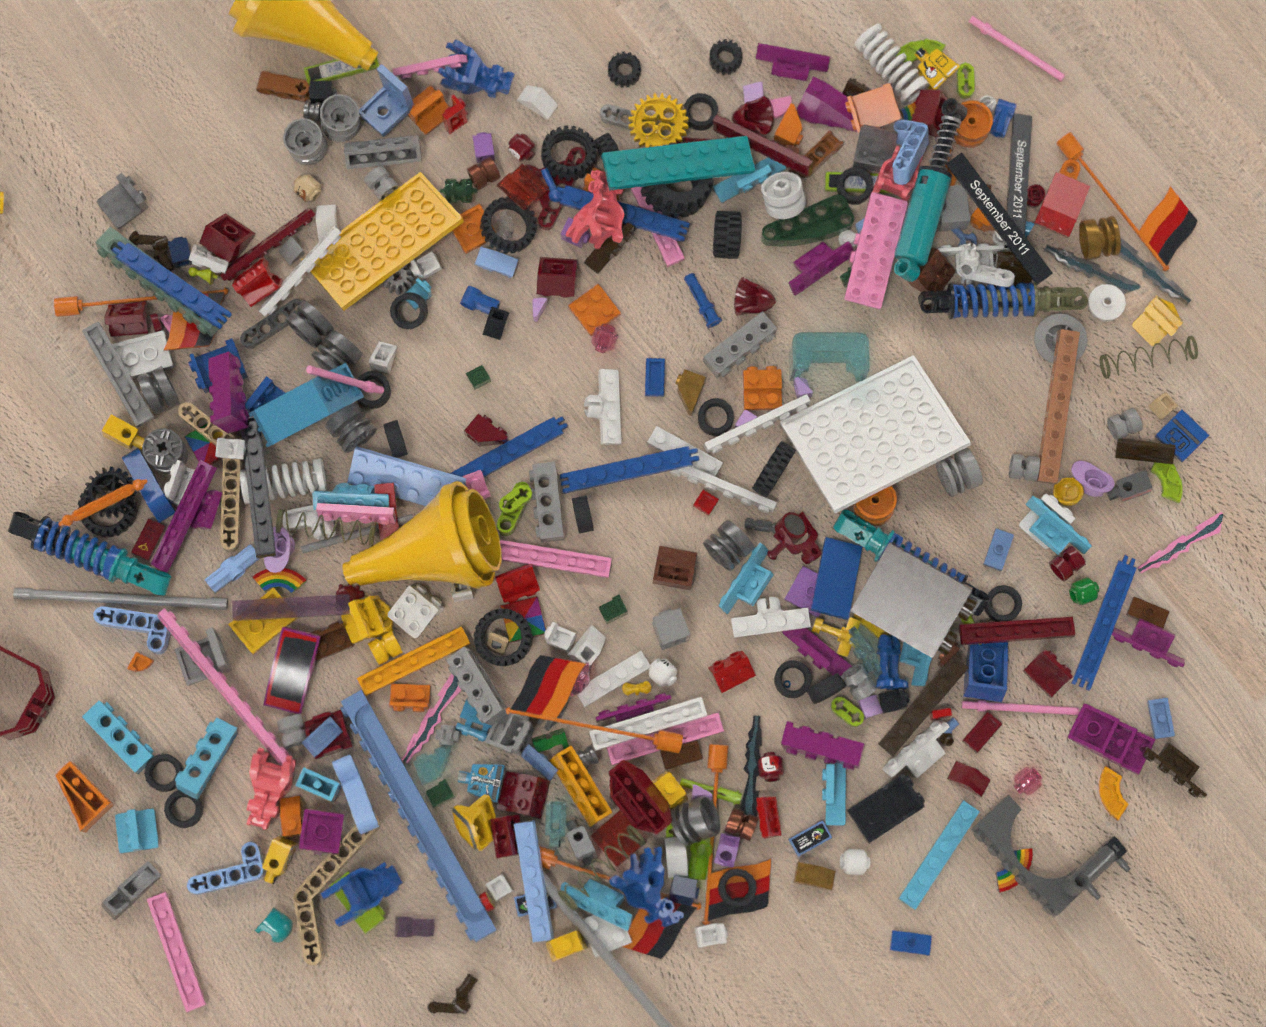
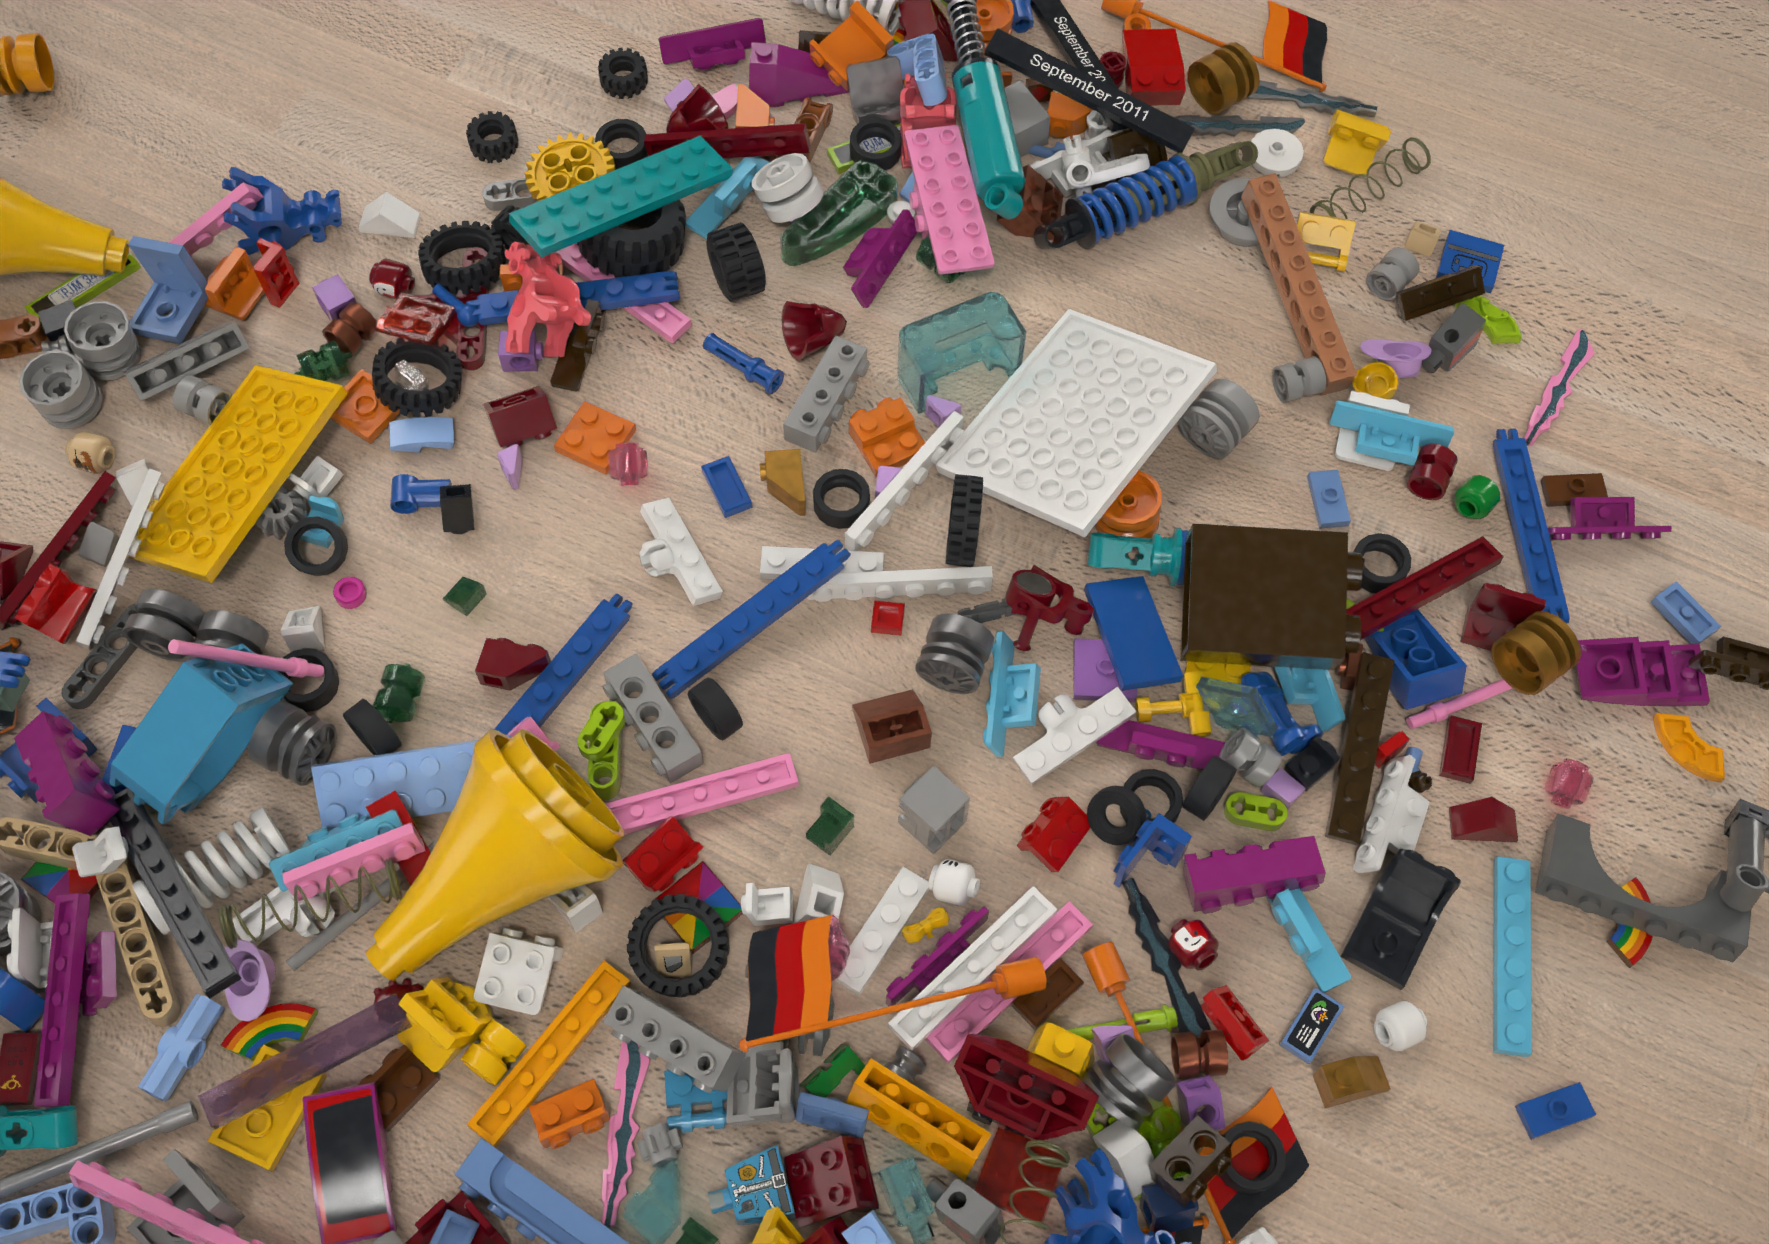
camera: 25 degrees left, 15 degrees down
(416, 345) = (349, 592): none -> dark pink tile
(420, 420) = (400, 687): none -> clear green wheel
(701, 870) = (1183, 1157): none -> dark brown brick
(776, 676) = (1100, 824): none -> black tyre
(785, 706) = (1162, 838): none -> blue bracket
(1051, 702) = (1536, 653): none -> pearl gold wheel
(1098, 377) = (1327, 232): none -> yellow plate

